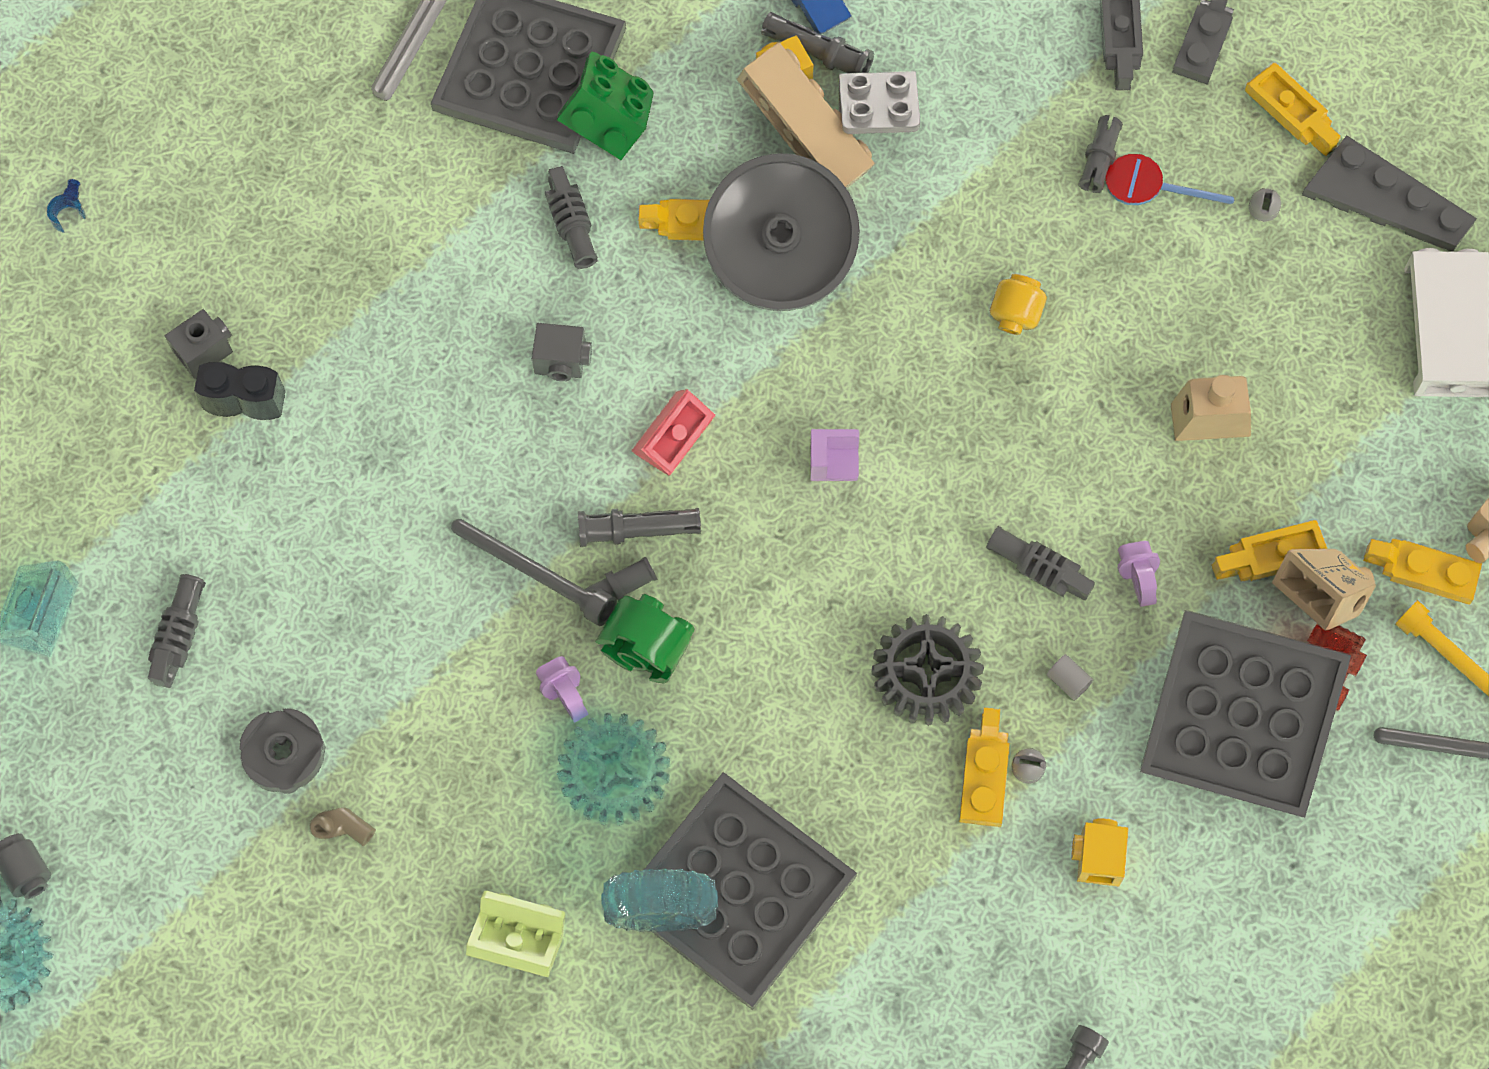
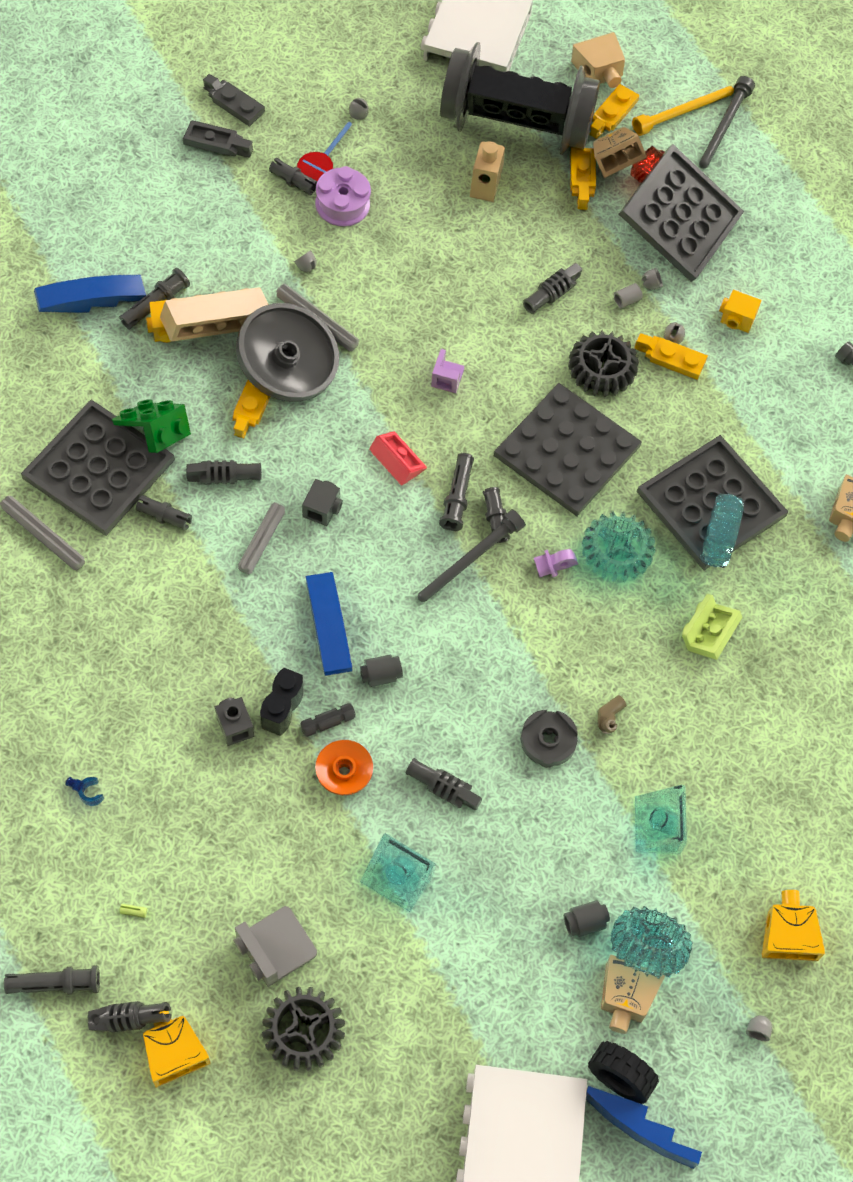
camera: 80 degrees left, 5 degrees down
(156, 483) = (344, 754): none -> orange dish
(189, 936) = (661, 821): none -> clear light blue slope
(237, 458) = (327, 719): none -> dark grey axle
(323, 502) = (381, 670): none -> dark grey brick
(373, 413) = (329, 624): none -> blue slope
(484, 165) = (164, 512): none -> dark grey pin
(485, 295) = (261, 538): none -> light grey axle
(645, 637) = (542, 500): green brick -> none
(766, 659) = (567, 449): none -> dark grey plate
(867, 259) = (340, 334): none -> light grey axle
(879, 102) = (220, 269): bracket -> none
(957, 213) = (306, 262): none -> light grey hinge
(1018, 304) = (381, 246): yellow head -> none
(1086, 227) = (343, 196): none -> lavender wheel
(1119, 716) = (652, 279): none -> light grey hinge
(1140, 565) = (574, 241): lavender piece -> none
(1293, 108) = (302, 73): yellow hinge -> none
(1339, 326) = (518, 99): none -> brick
(1377, 189) = (369, 54): dark grey wing -> none

